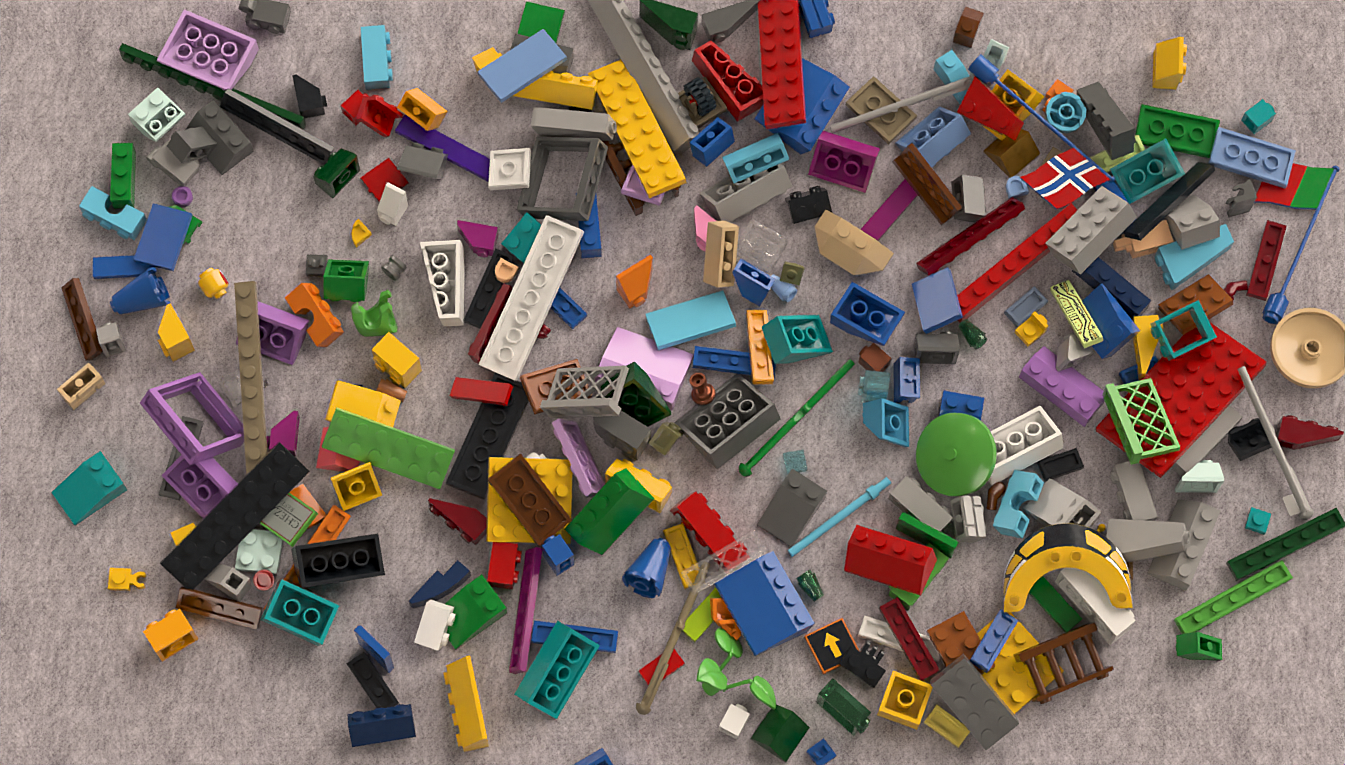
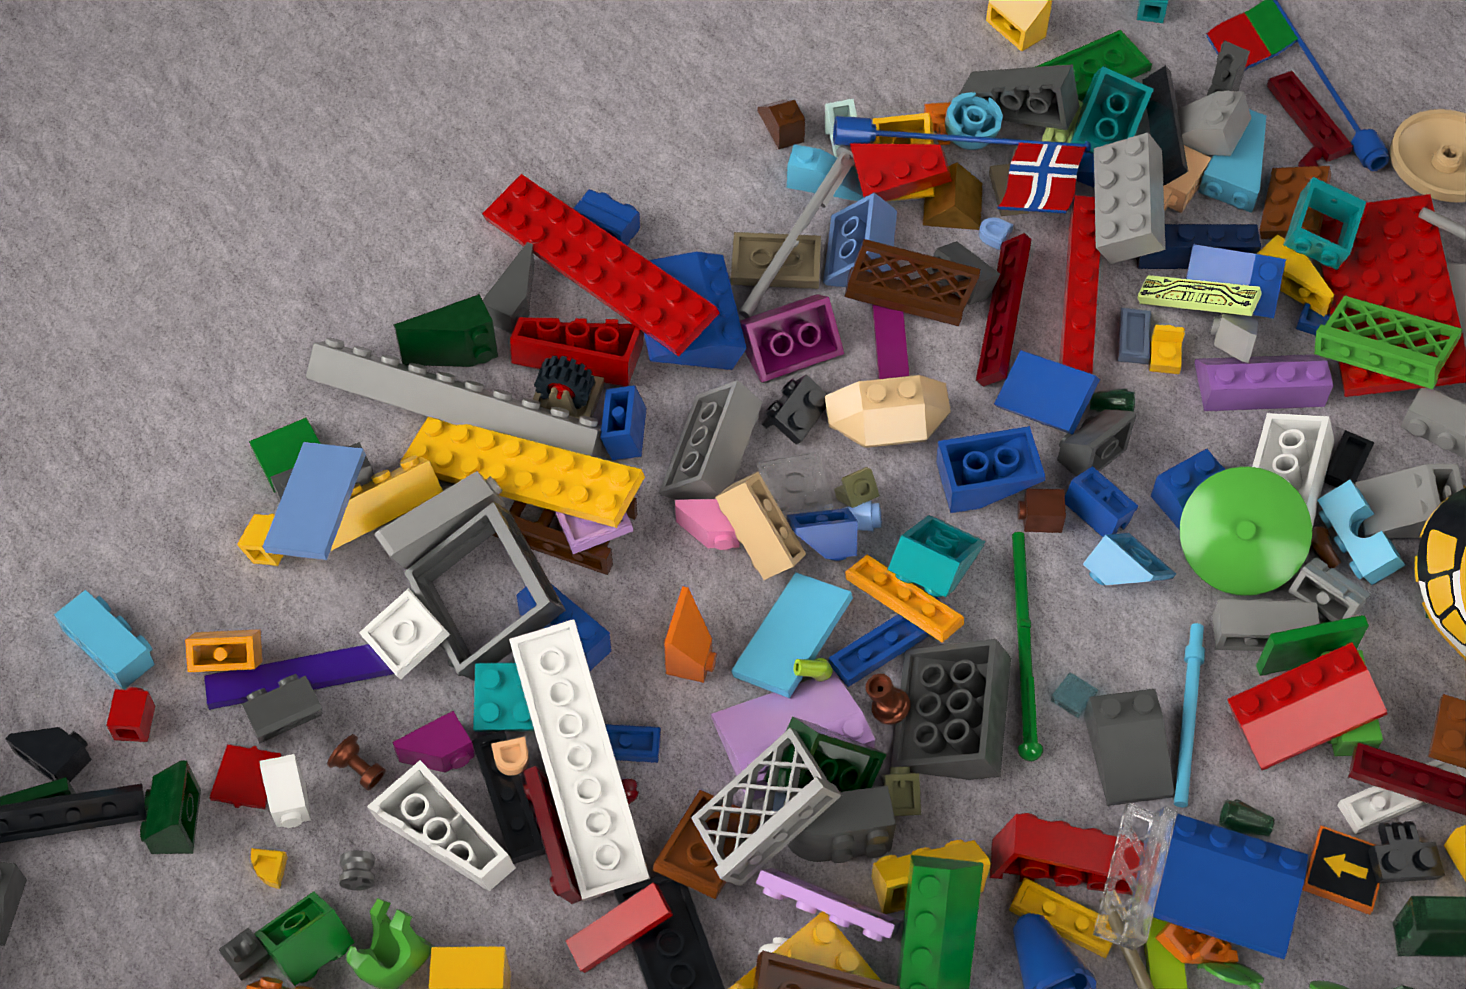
camera: 40 degrees left, 15 degrees down
(378, 114) = (170, 697): red bracket -> none
(435, 208) = (347, 755): none -> copper piece
(683, 348) = (817, 669): none -> lime arm
(755, 158) = (692, 400): medium azure brick -> none
(874, 385) = (1079, 532): clear light blue brick -> none
(1252, 157) = (1188, 37): medium blue tile -> none

